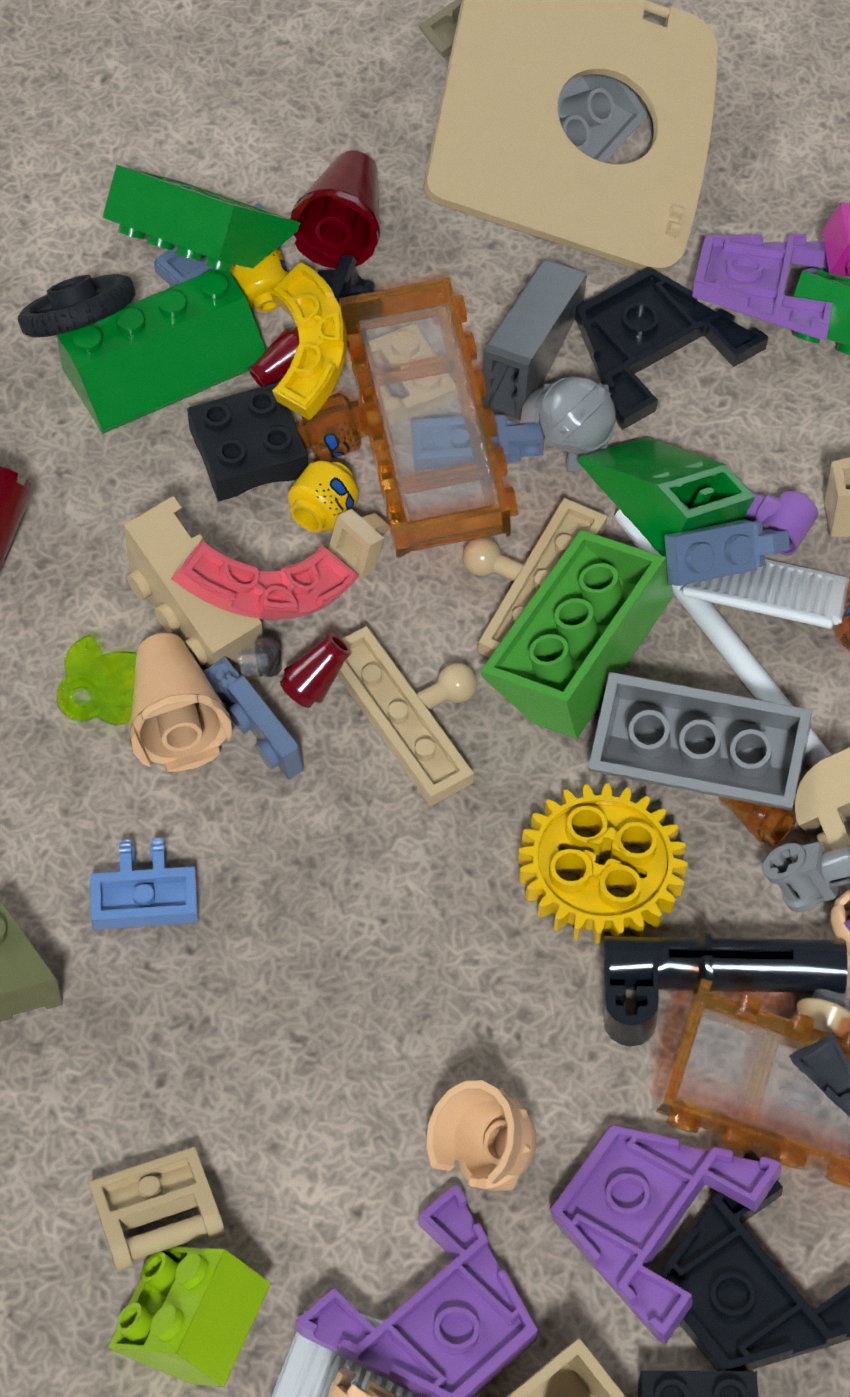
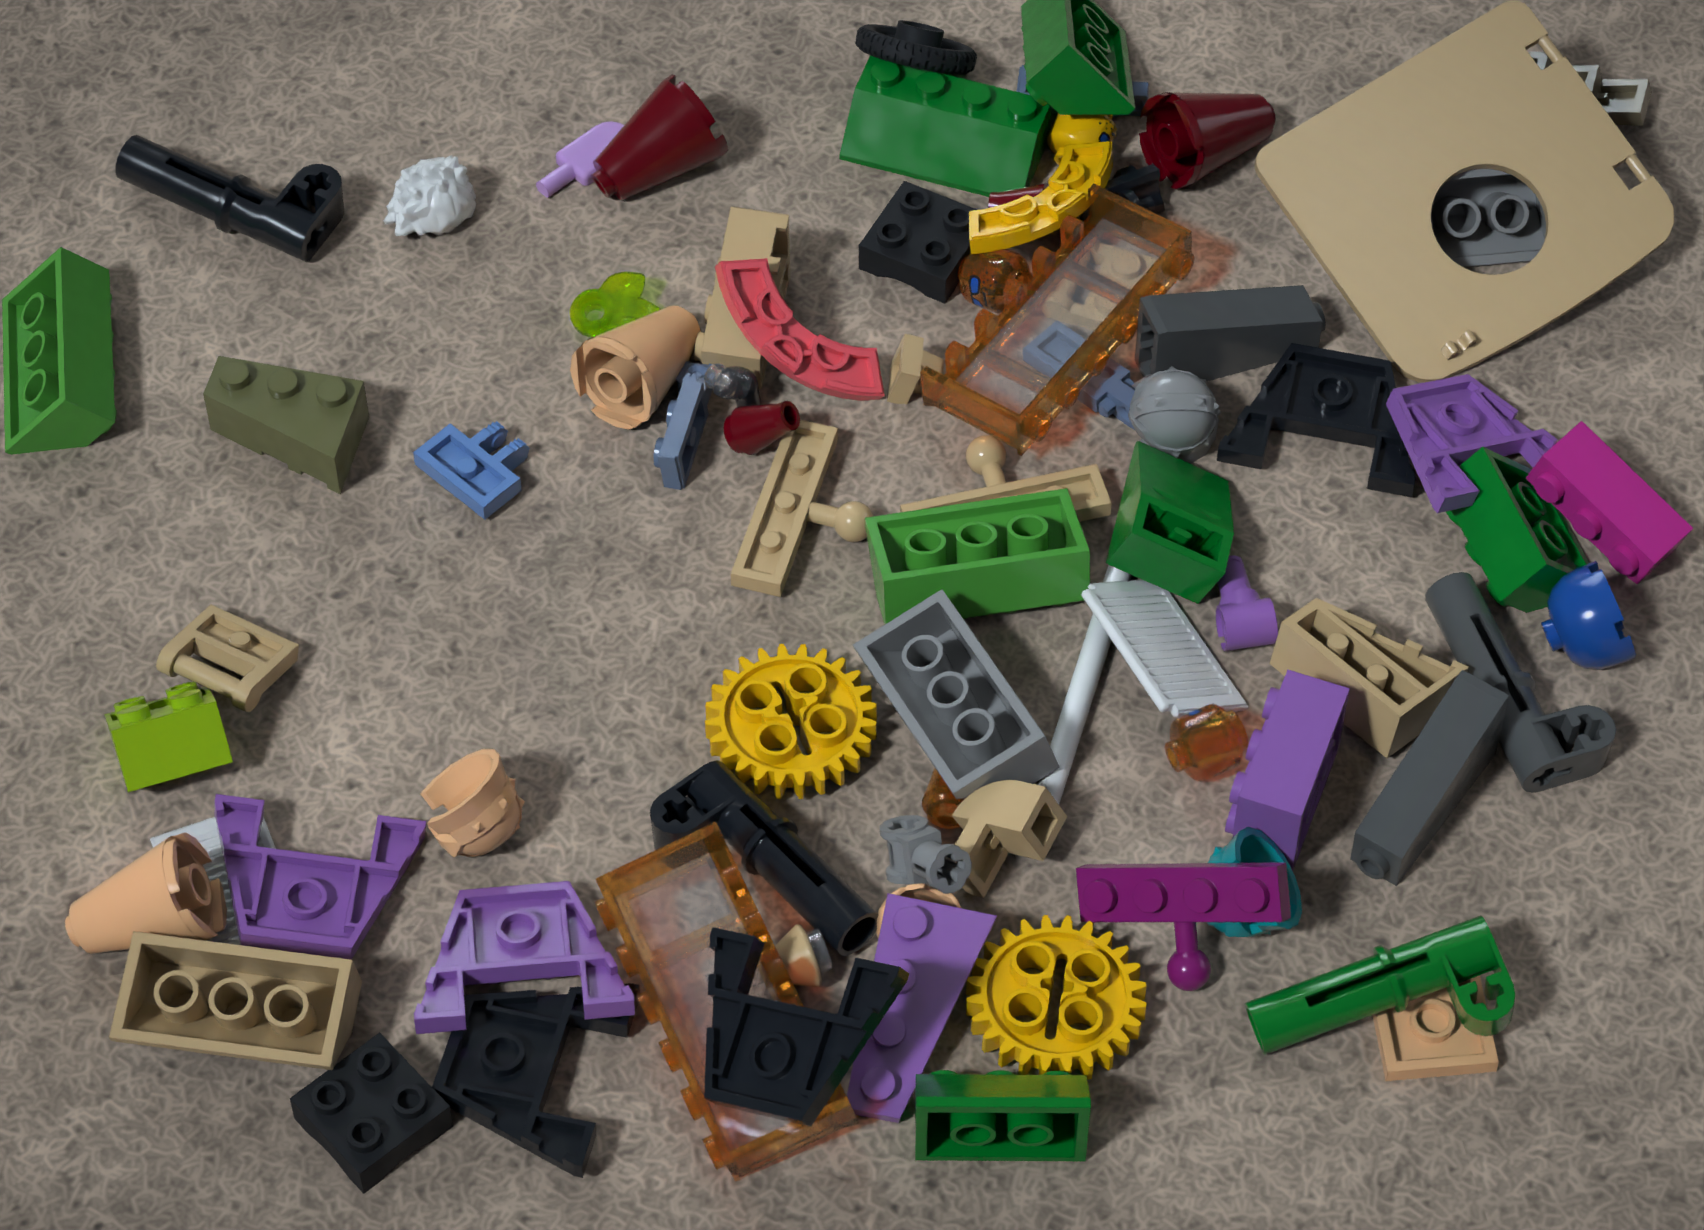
camera: 50 degrees right, 5 degrees down
(322, 495) = (925, 314): yellow head -> none
(720, 550) = (1146, 586): sand blue hinge -> none

